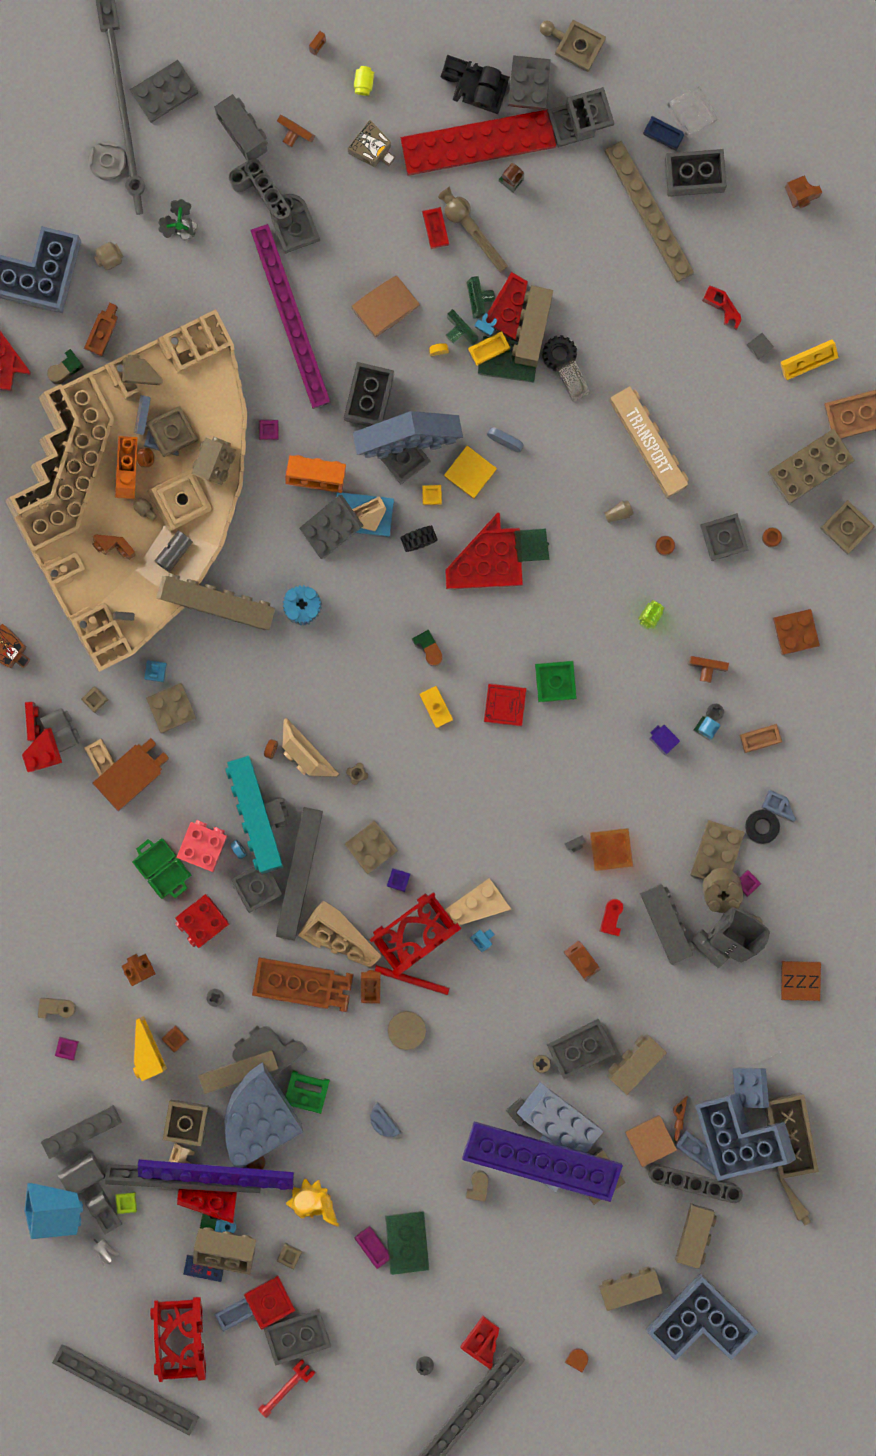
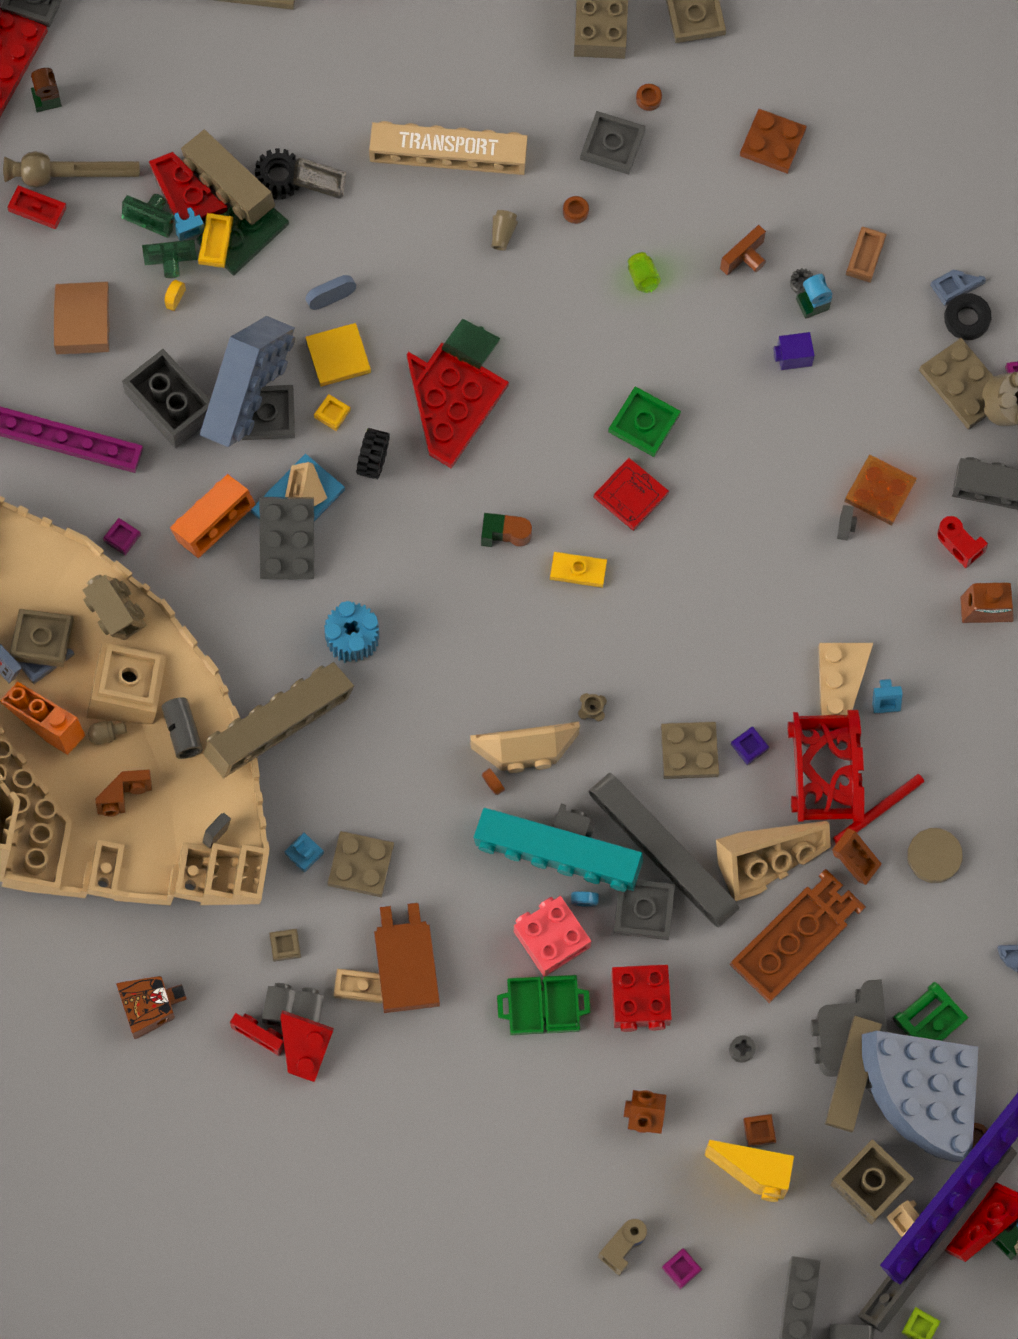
camera: 55 degrees left, 15 degrees down
(145, 457) = (48, 688): dark orange tile -> none

